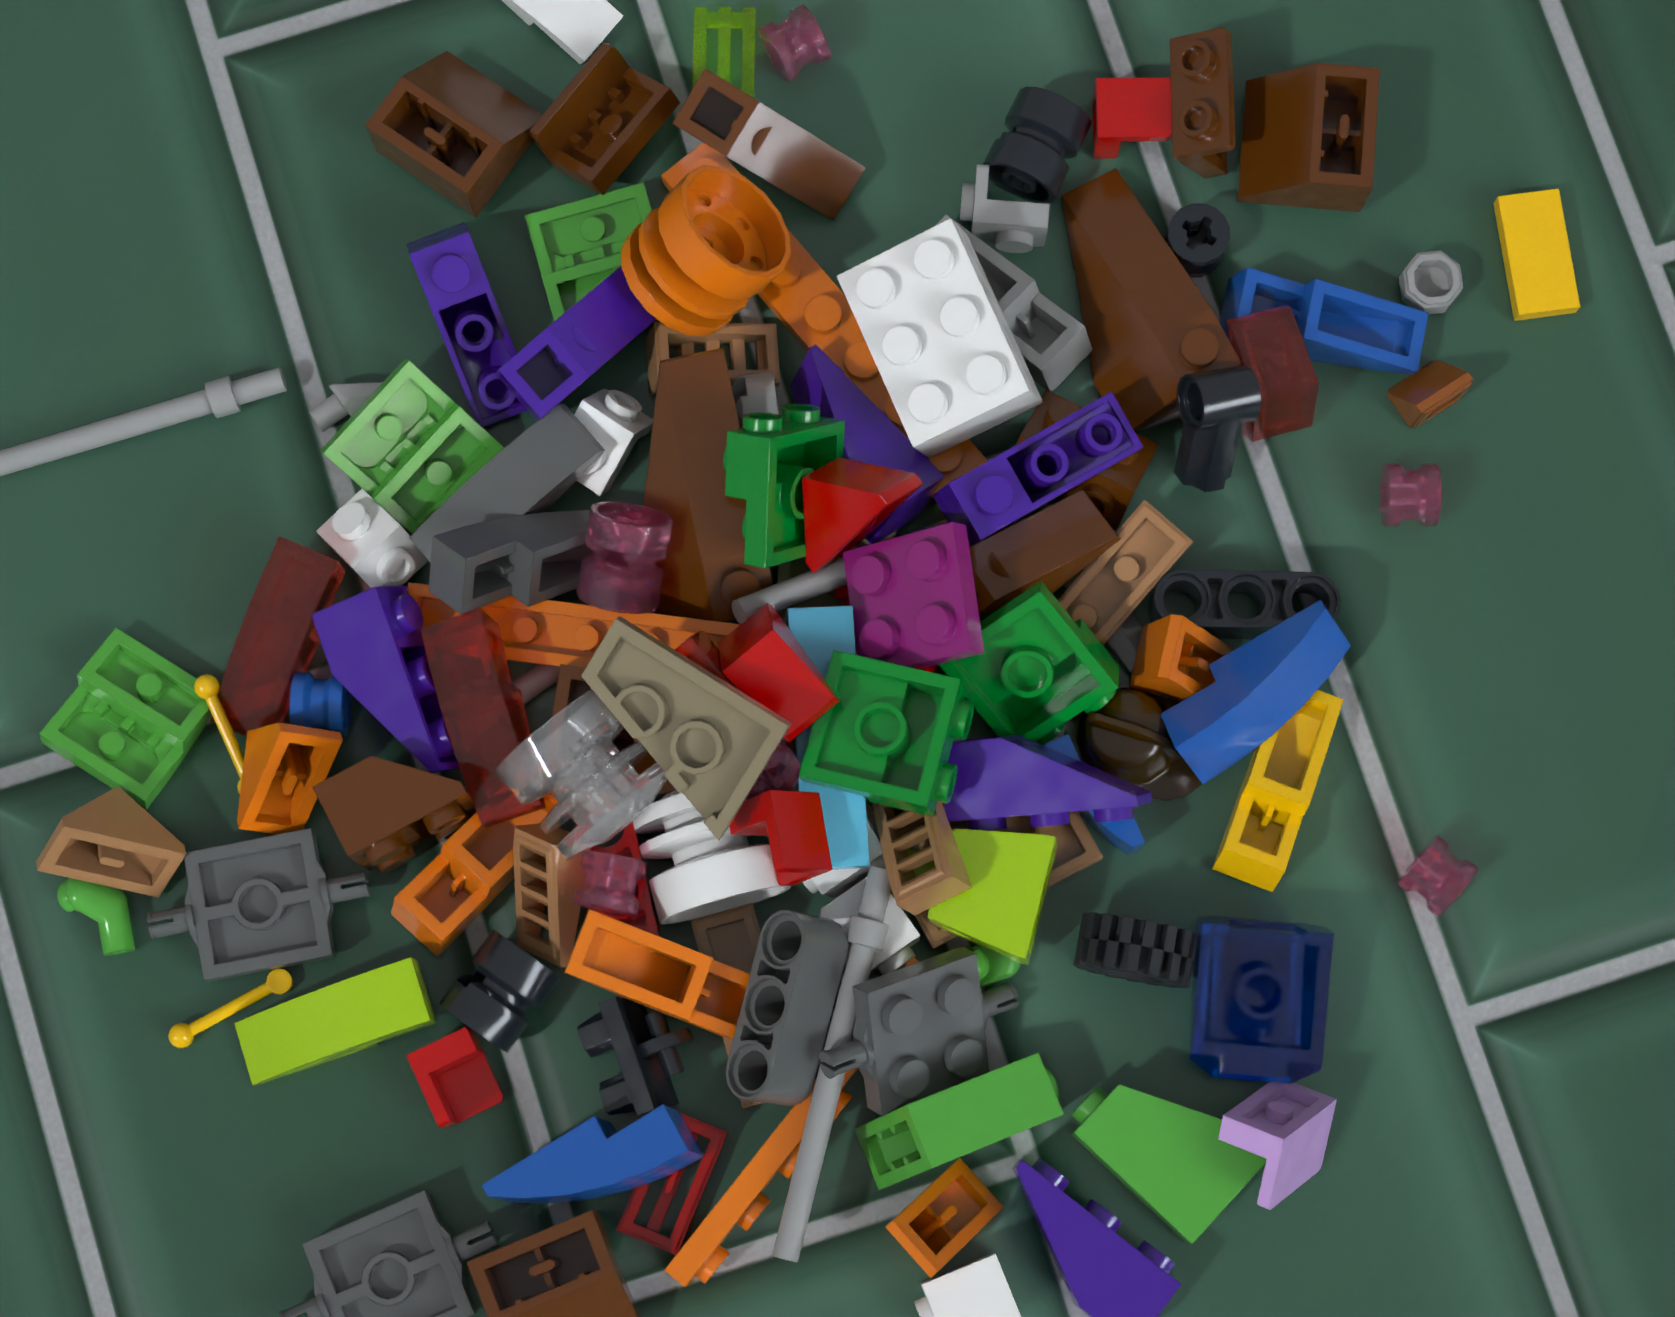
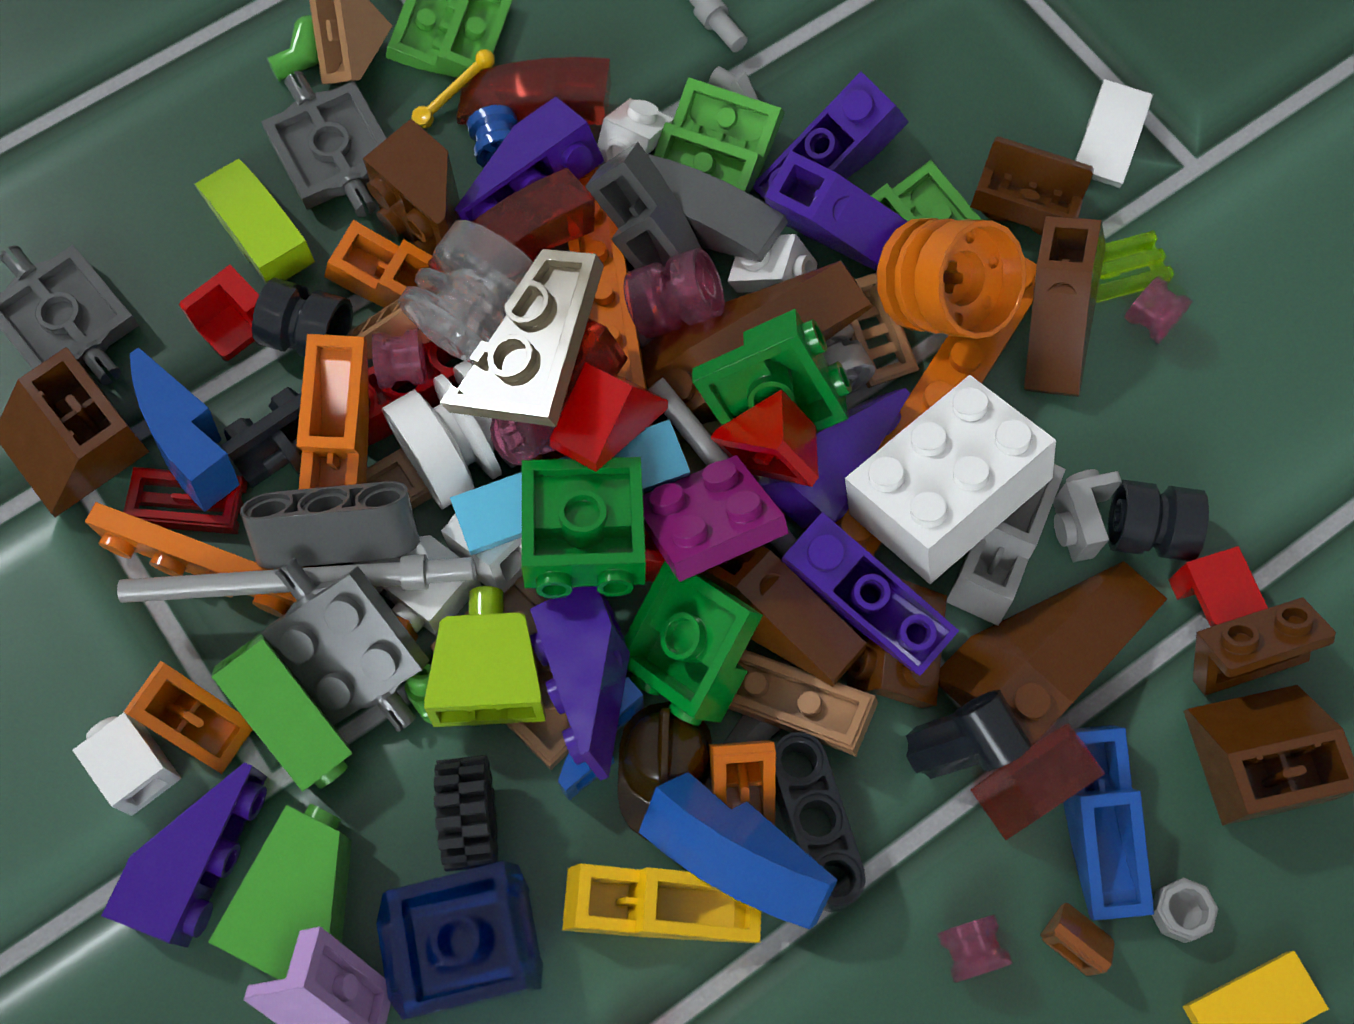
camera: 70 degrees right, 10 degrees down
(278, 982) = (277, 178): yellow hinge -> none
(279, 776) = (437, 114): orange slope -> none
(453, 130) = (977, 88): reddish brown slope -> none
(794, 831) = (470, 467): red panel -> none
(933, 886) = (471, 596): medium nougat slope -> none
(1192, 250) = (1123, 693): black wheel -> none

